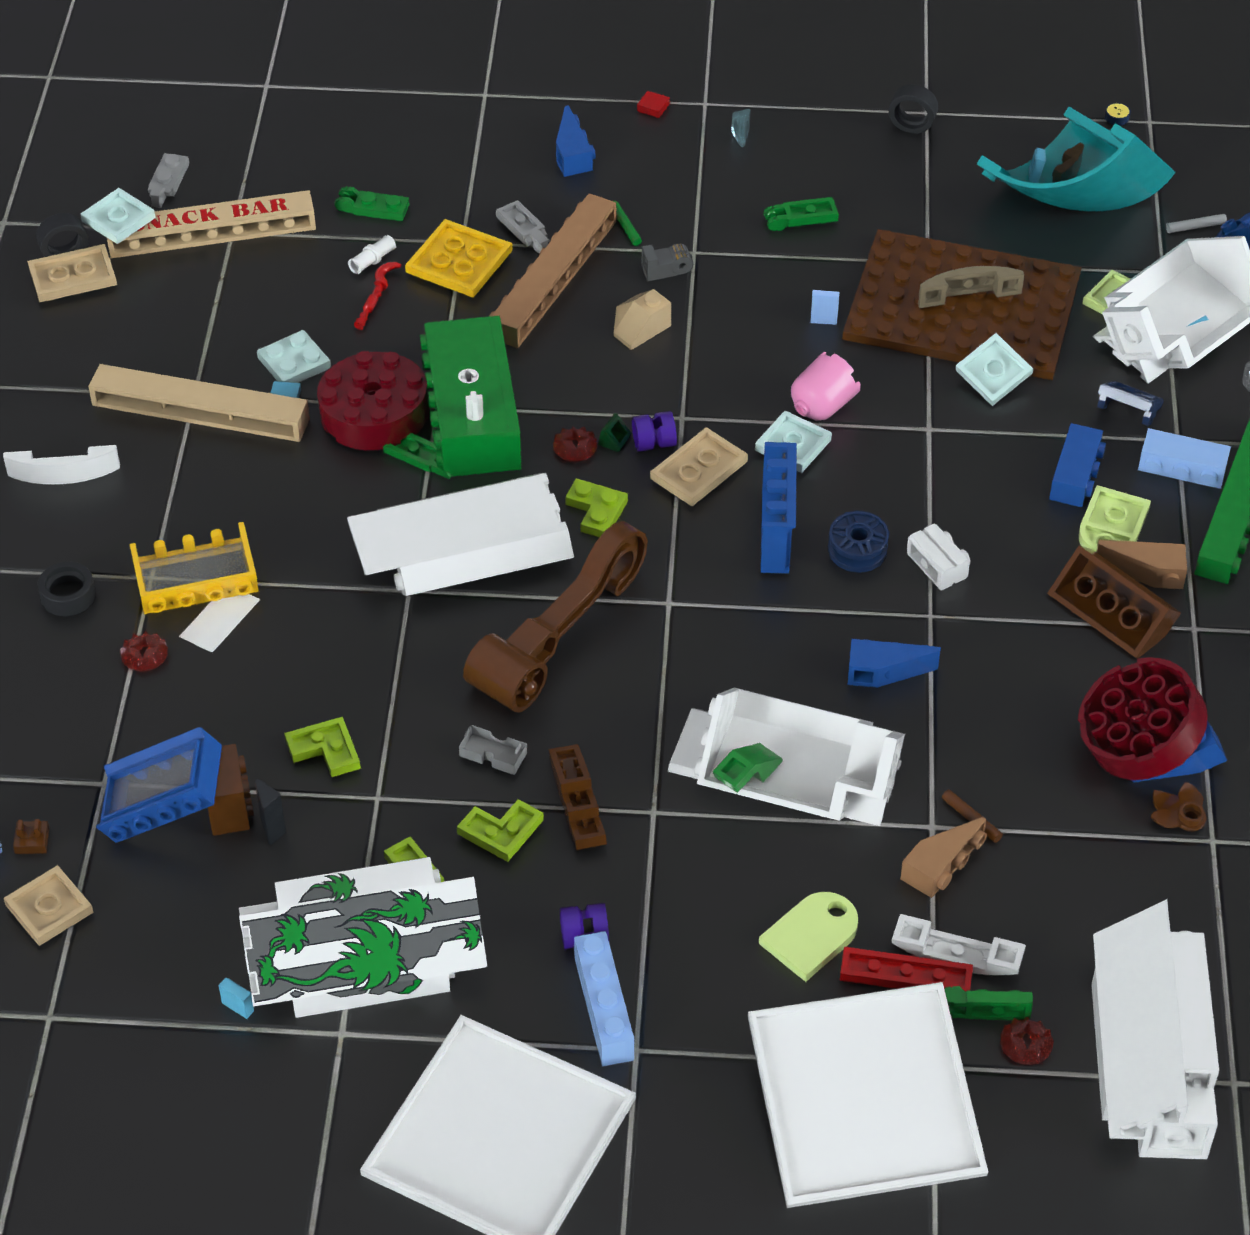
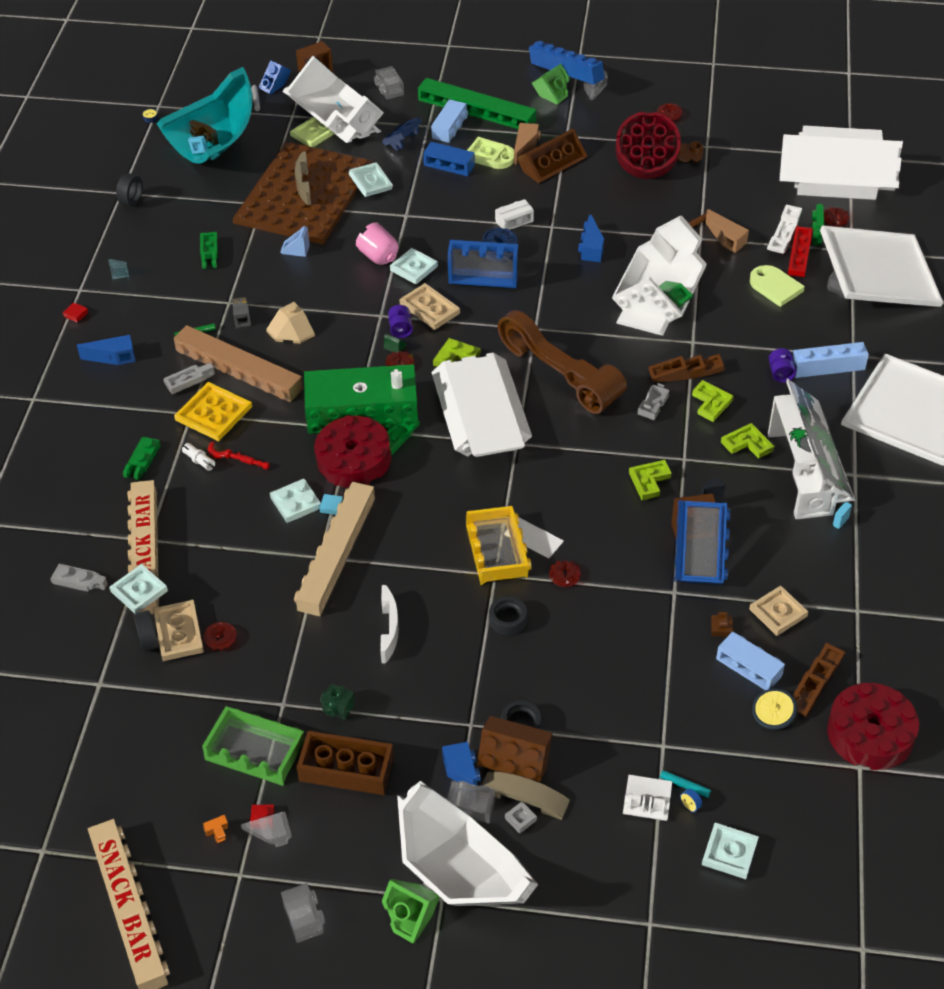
camera: 85 degrees left, 0 degrees up
(55, 307) = (218, 629): none -> clear red gear

